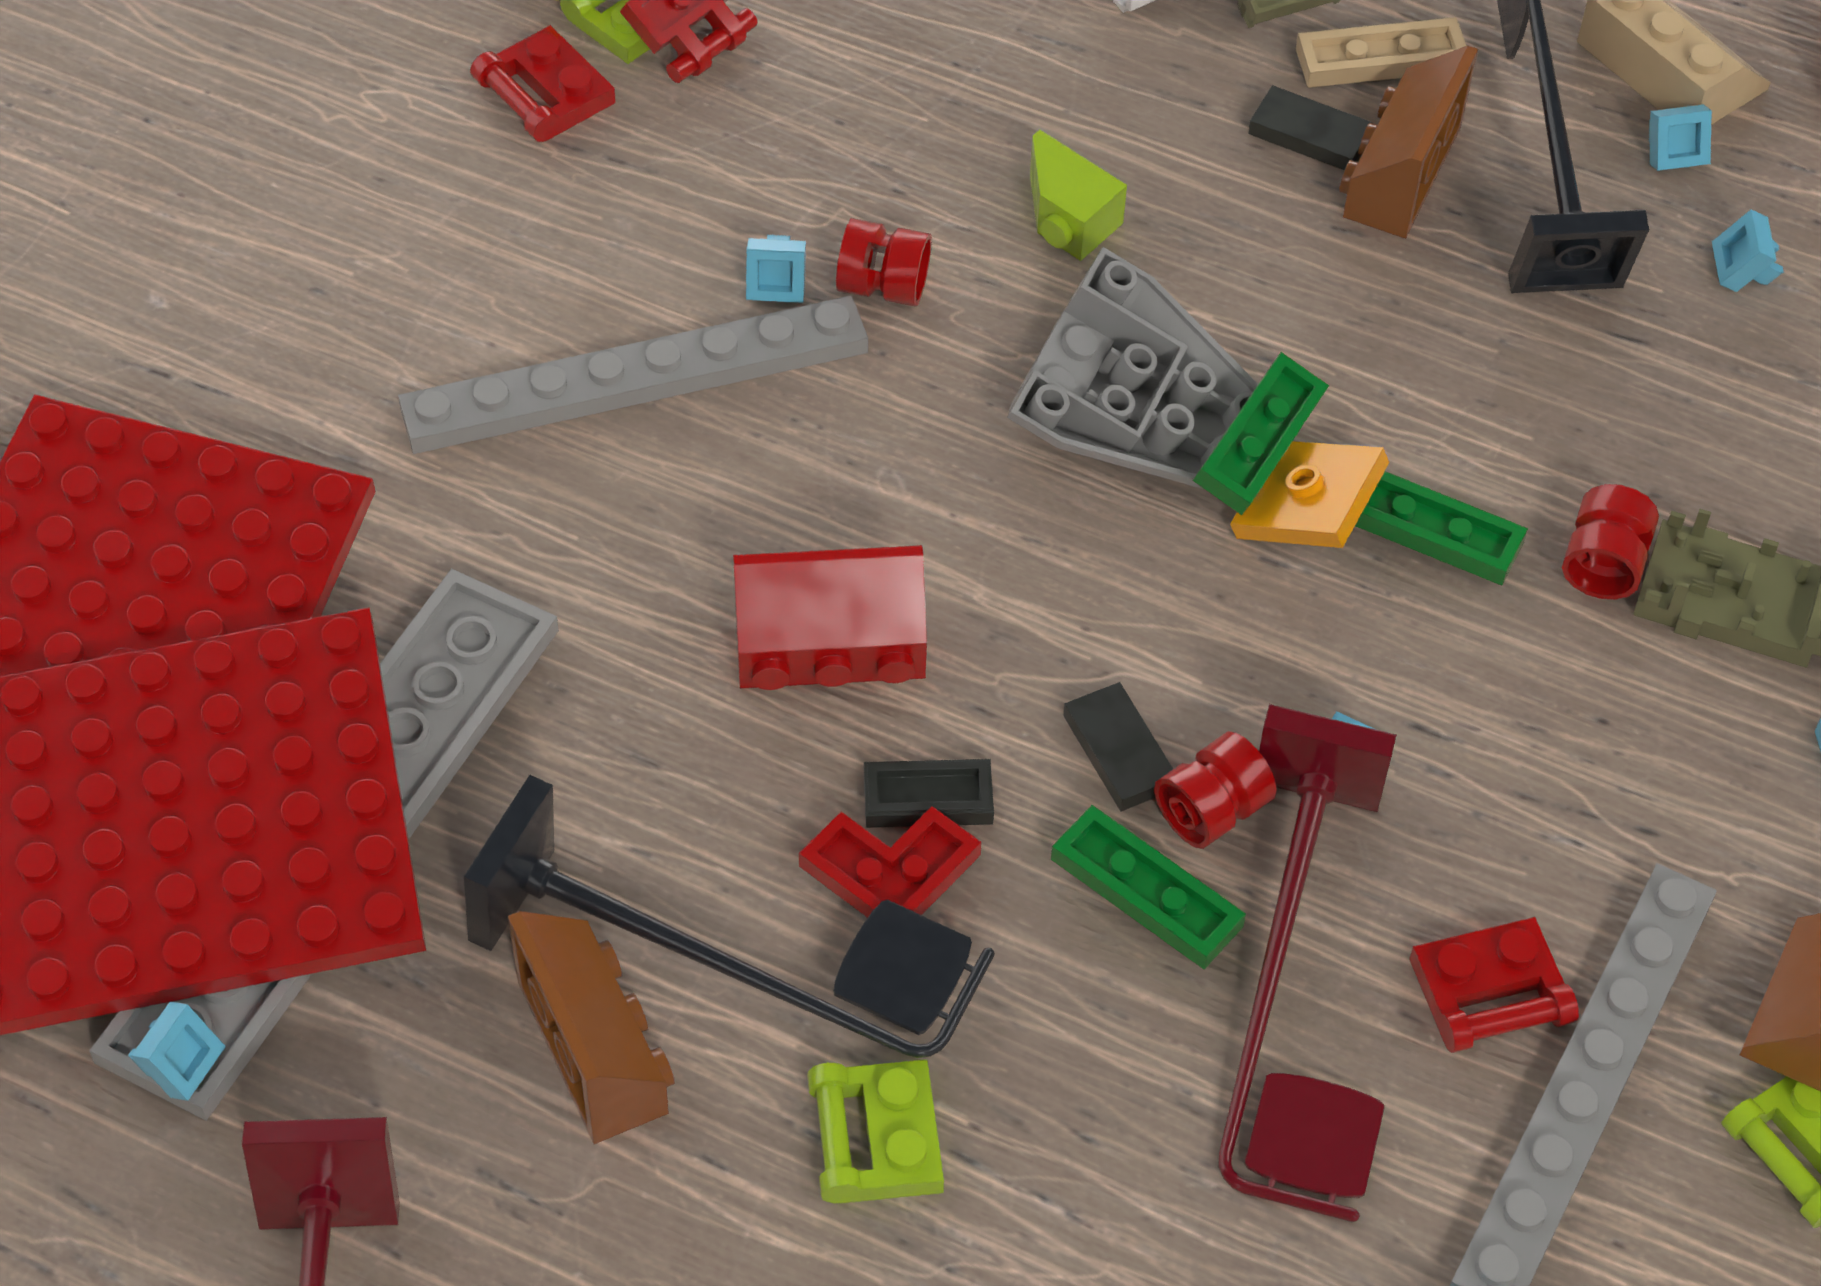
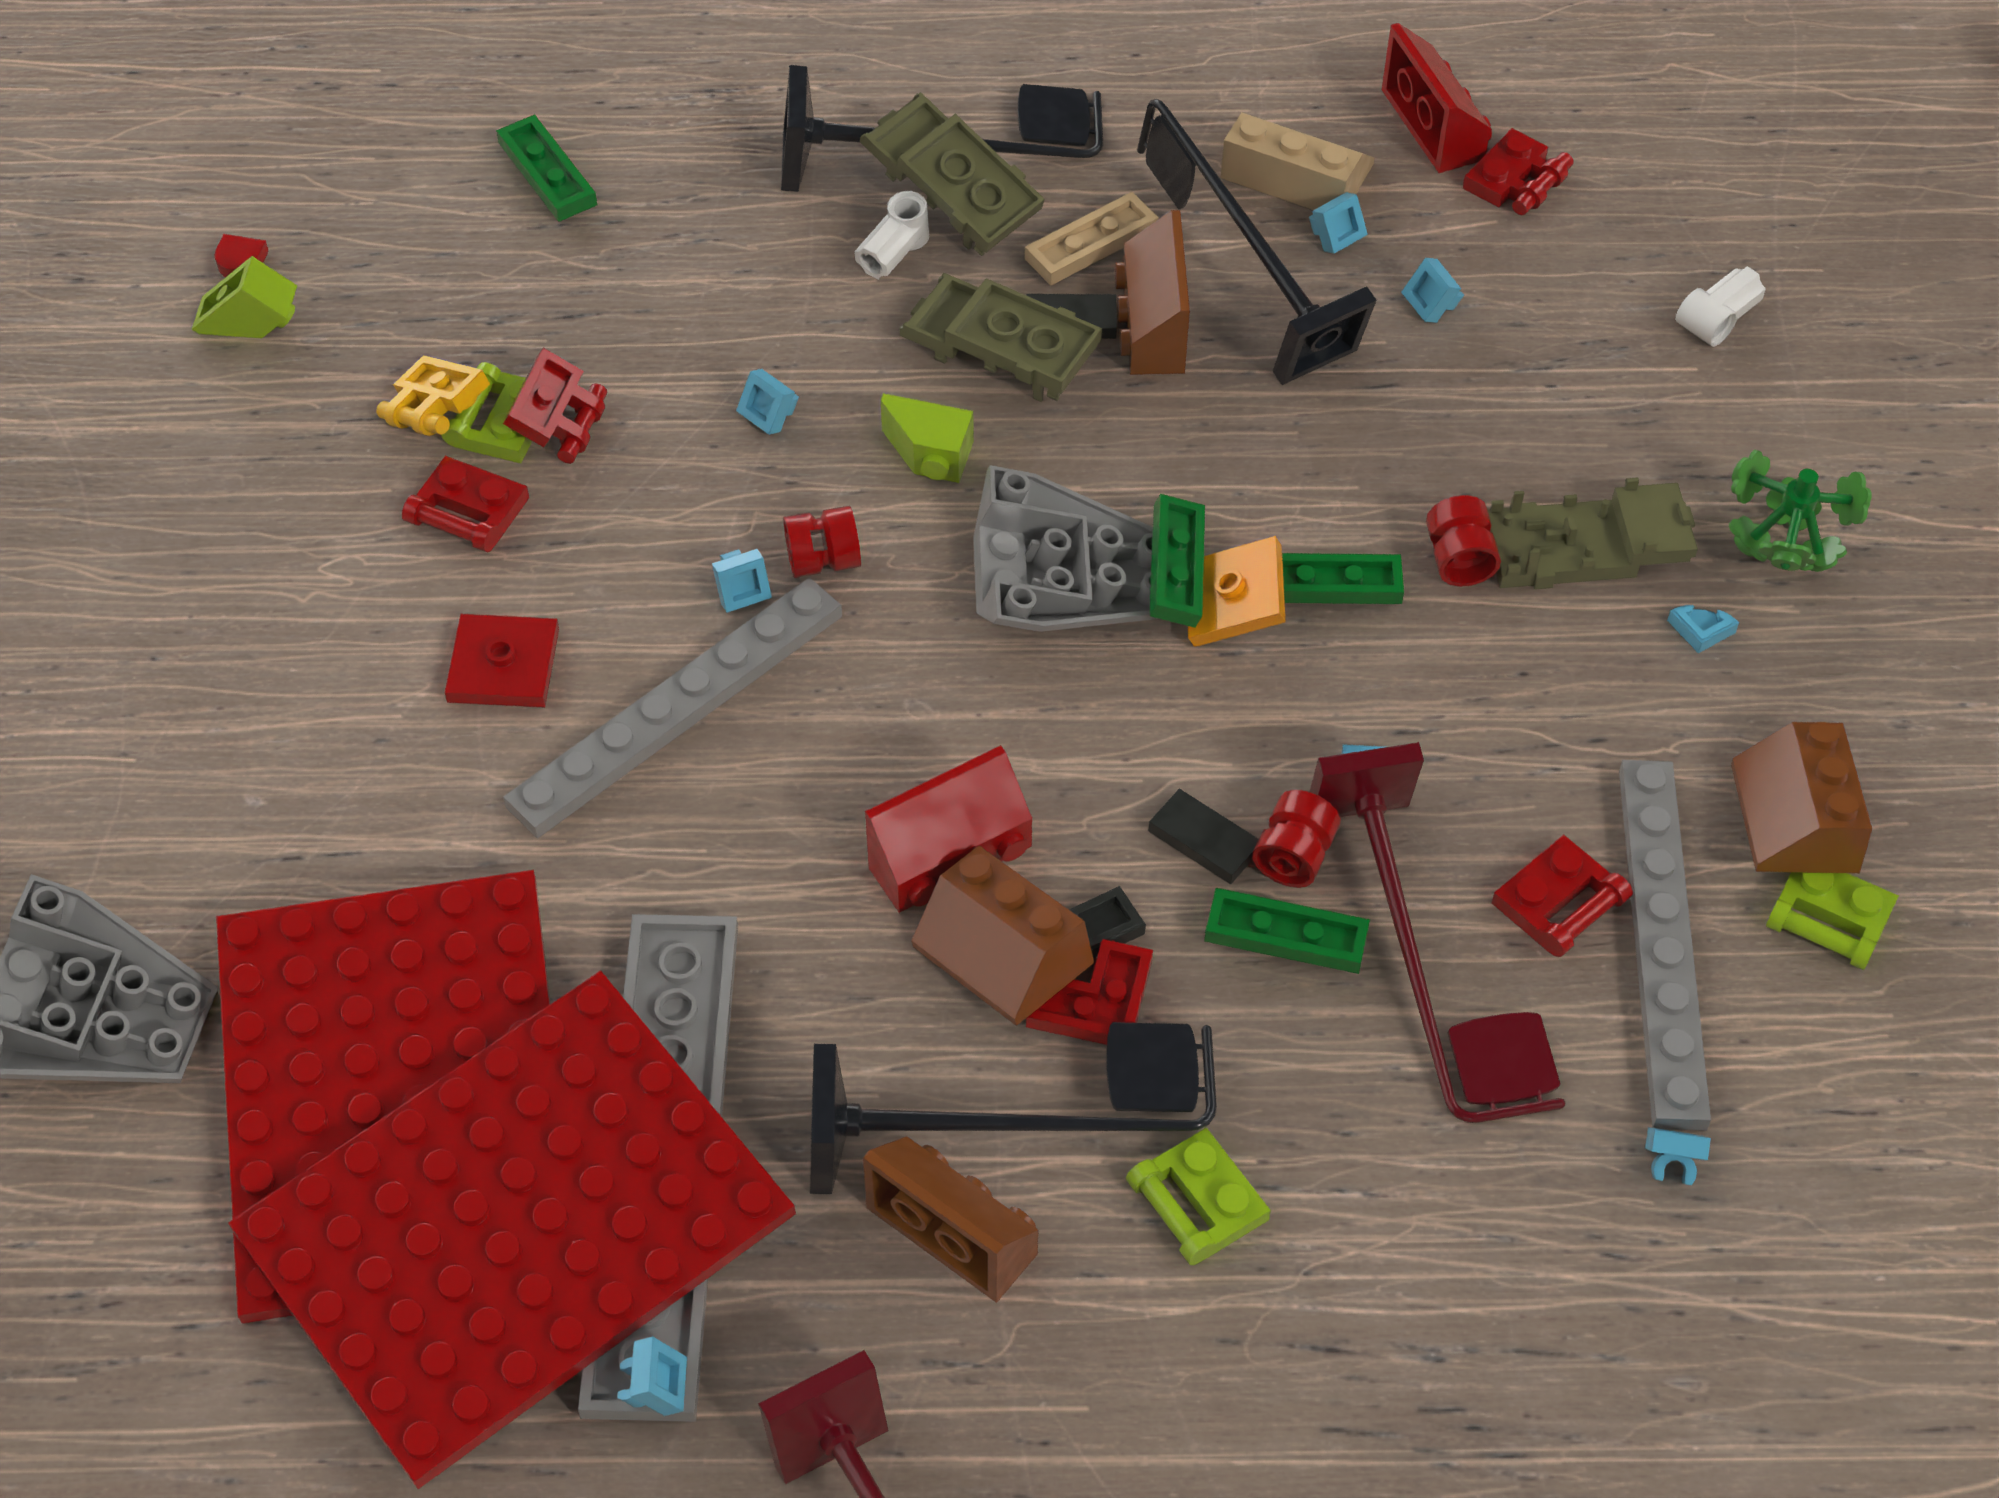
camera: 25 degrees left, 0 degrees up
(484, 257) = (502, 660): none -> red plate
(819, 755) = (1001, 936): none -> dark orange slope
(917, 94) = (766, 401): none -> medium azure tile
(1219, 116) = (1004, 331): none -> olive piece

